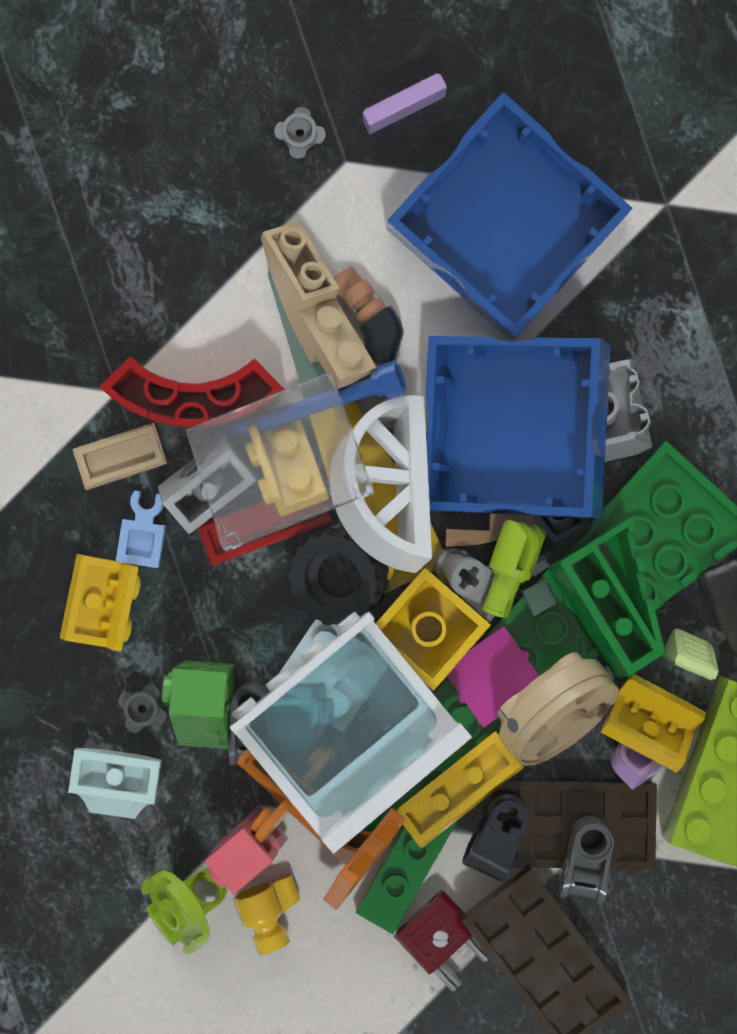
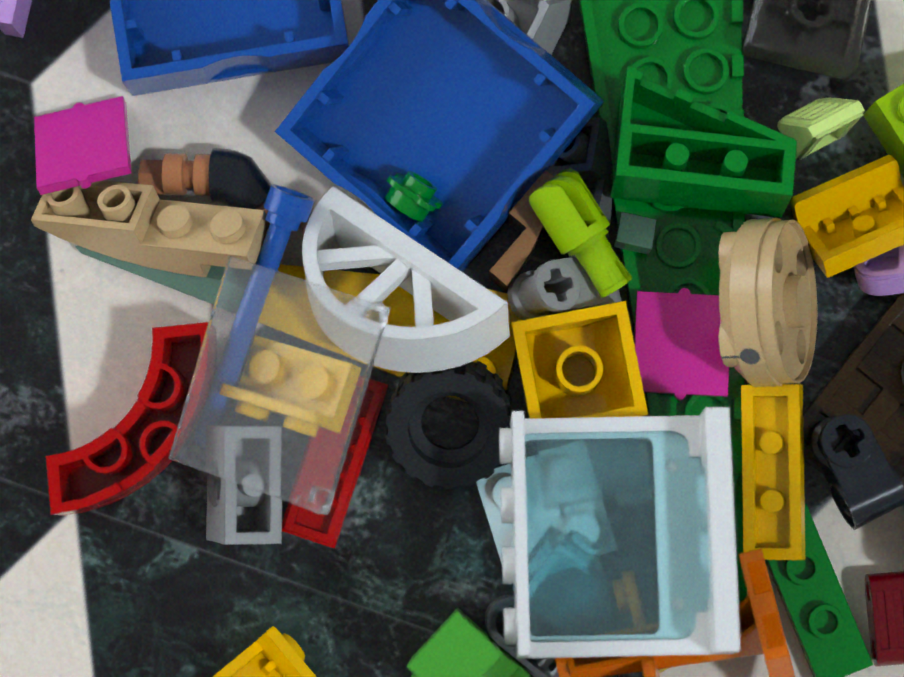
camera: 45 degrees left, 5 degrees down
(120, 456) = (144, 555): tan tile -> none
(141, 539) = (247, 599): light blue plate -> none
(331, 225) = (82, 145): none -> dark pink piece
(456, 447) = (412, 195): none -> green plate

